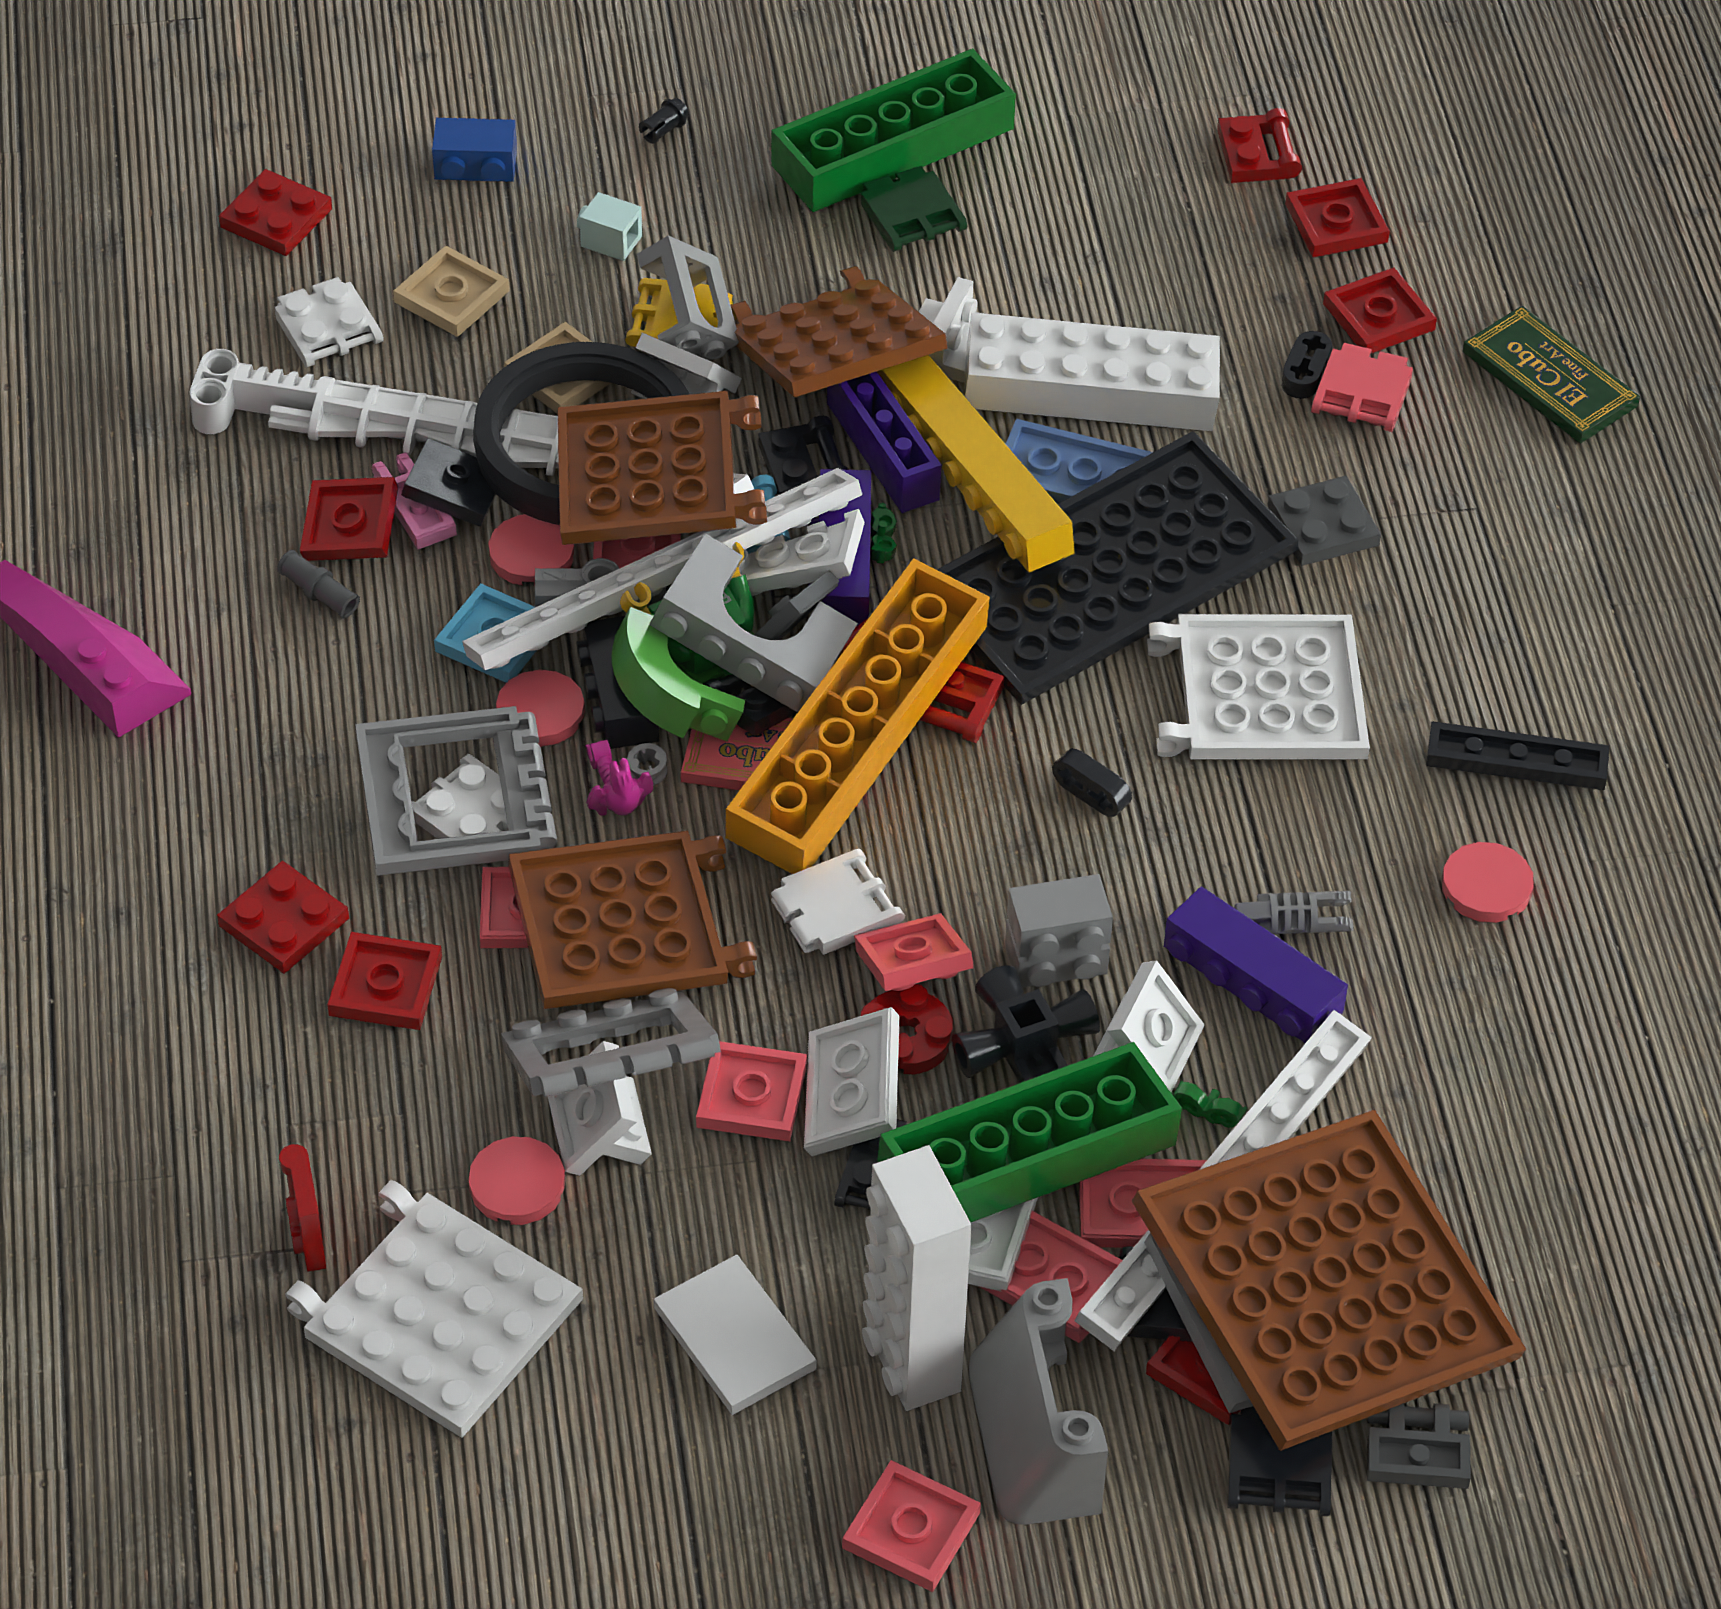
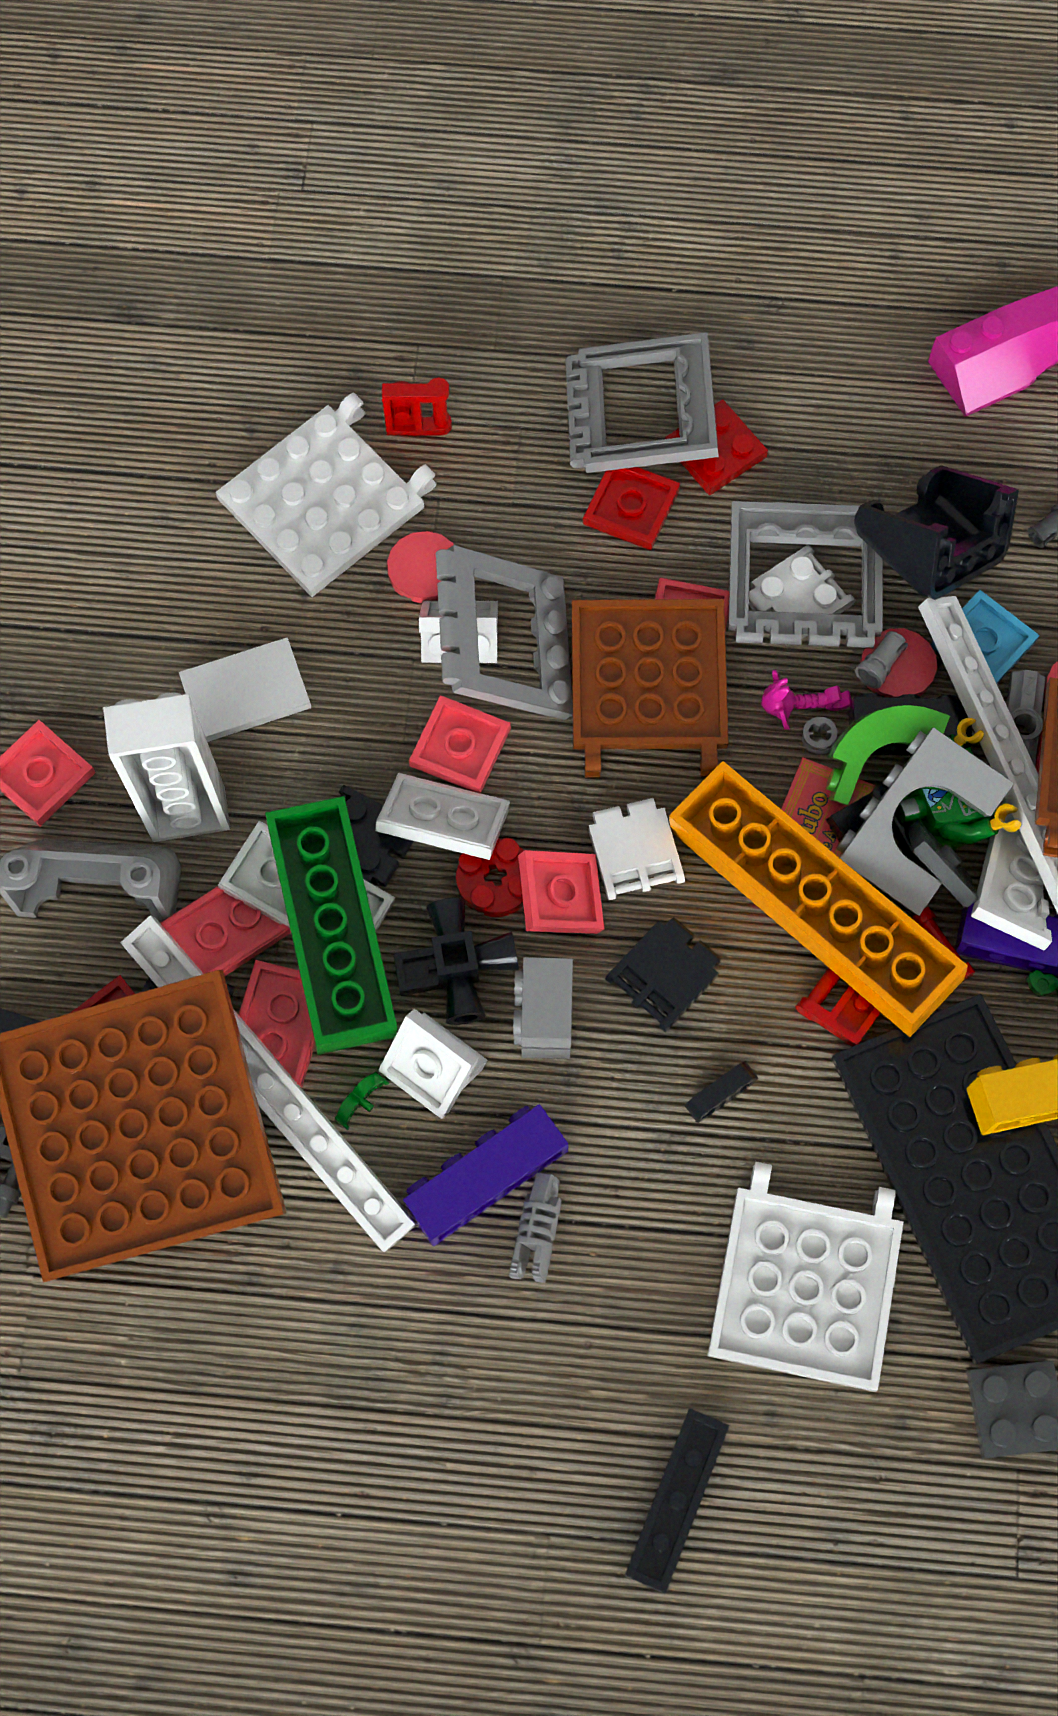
camera: 105 degrees right, 20 degrees up
(227, 930) = (694, 404): none -> light grey hinge
(373, 665) = (948, 535): none -> black windscreen
(558, 711) = (877, 665): none -> light grey pin
(972, 850) = (666, 971): none -> black plate
(1487, 881) = (539, 1421): coral tile -> none

